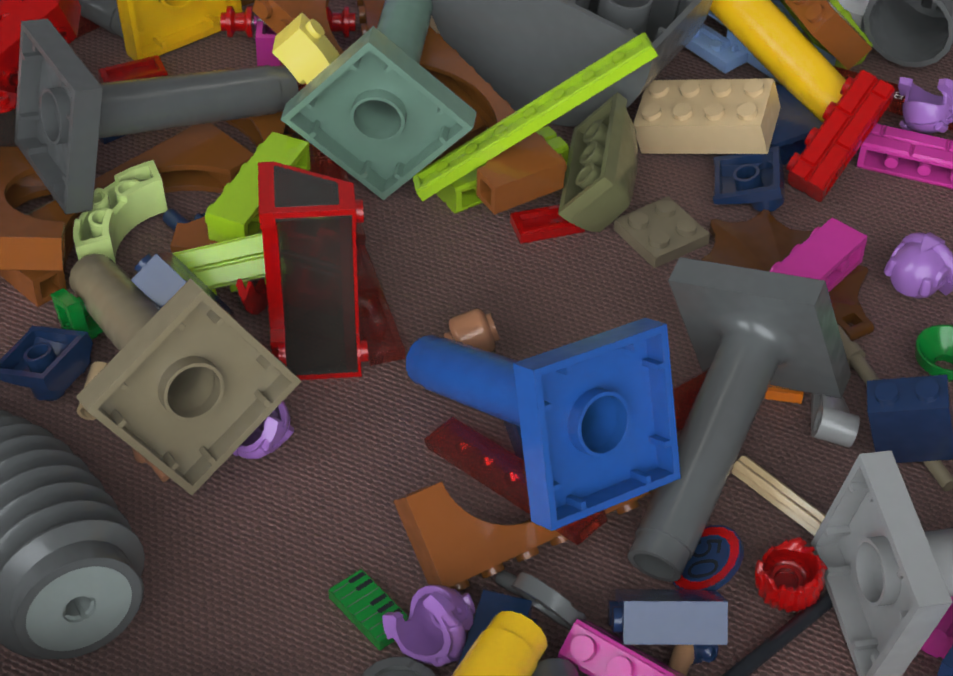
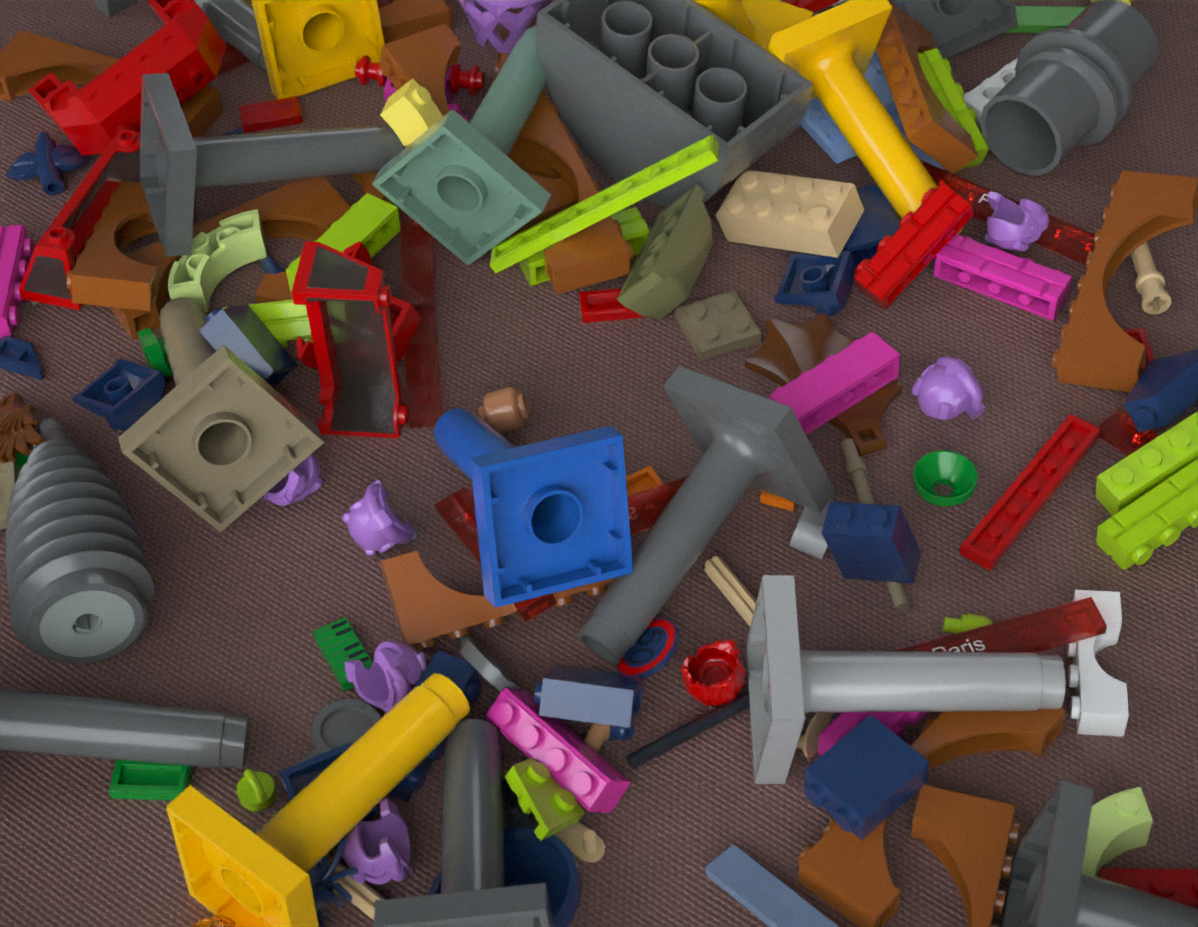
camera: 15 degrees right, 5 degrees up
(370, 463) = (374, 524): none -> medium lavender helmet

